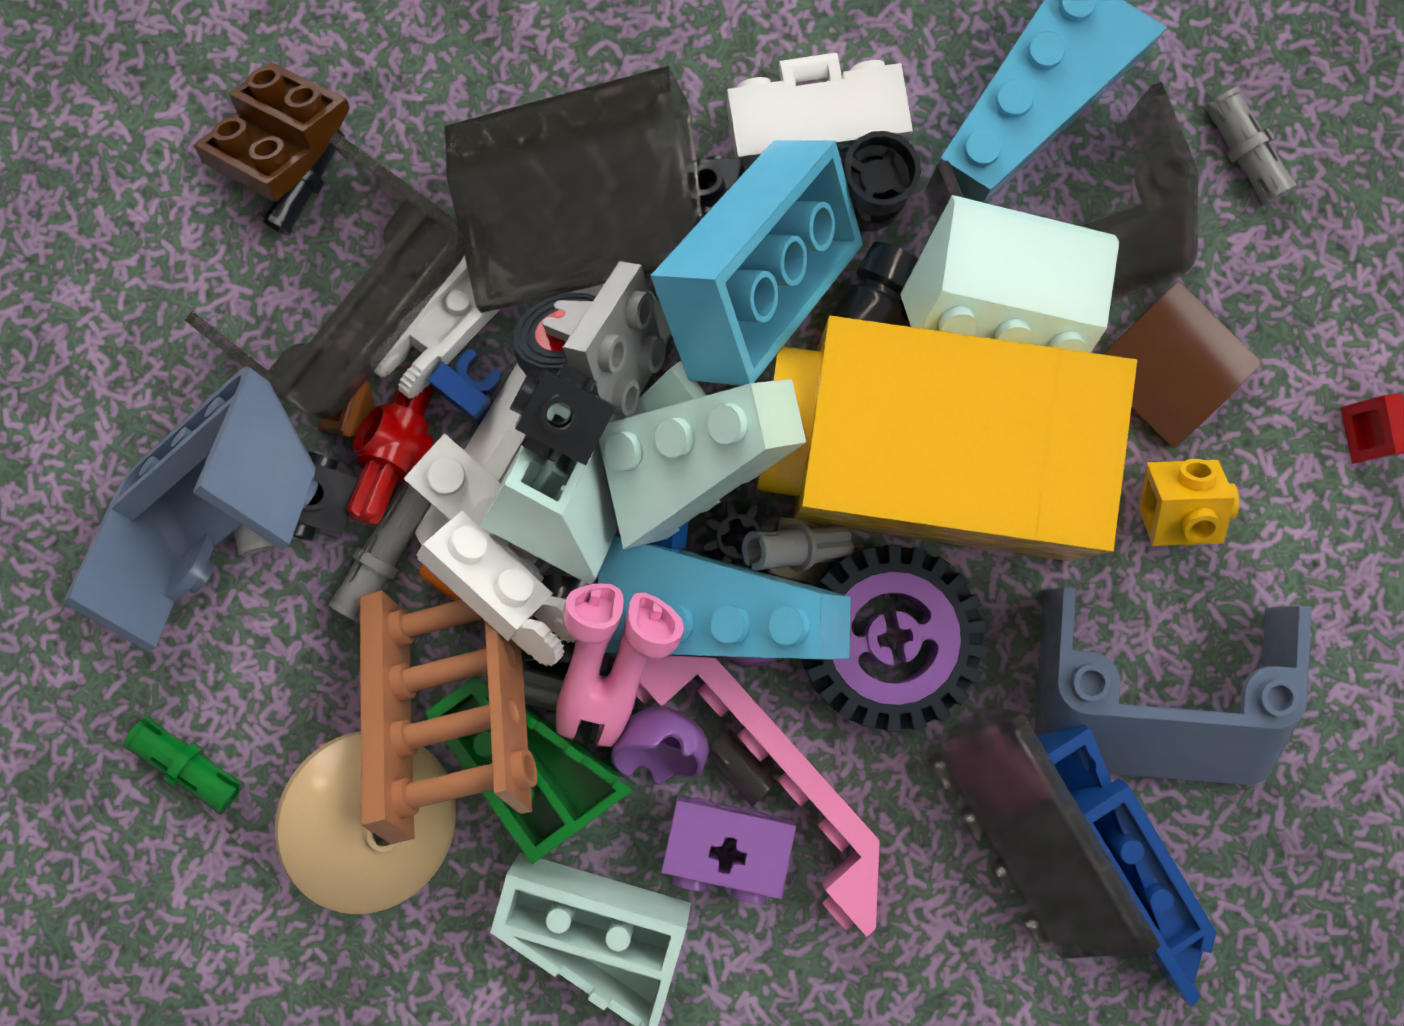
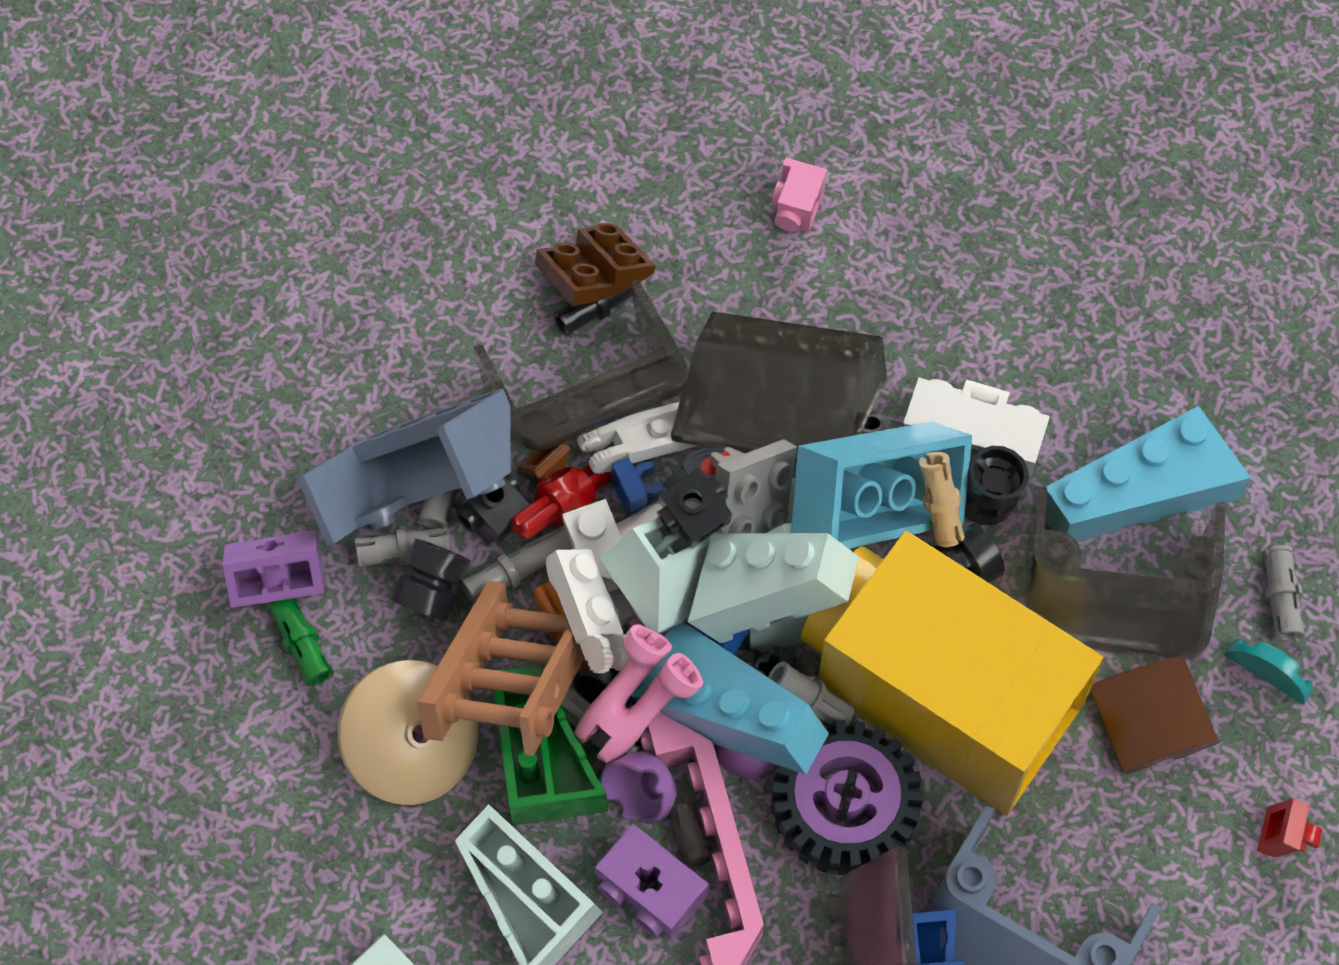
camera: 25 degrees right, 20 degrees down
(102, 707) = (273, 569): none -> medium lavender brick
(238, 596) = (396, 546): none -> light grey pin
(293, 627) = (430, 579): none -> black wheel
(838, 239) = (941, 499): none -> tan pin
(1013, 278) = (1055, 575): light aqua slope -> none
(1187, 502) = (1113, 808): yellow brick -> none
(1276, 242) = (1272, 666): none -> teal tile

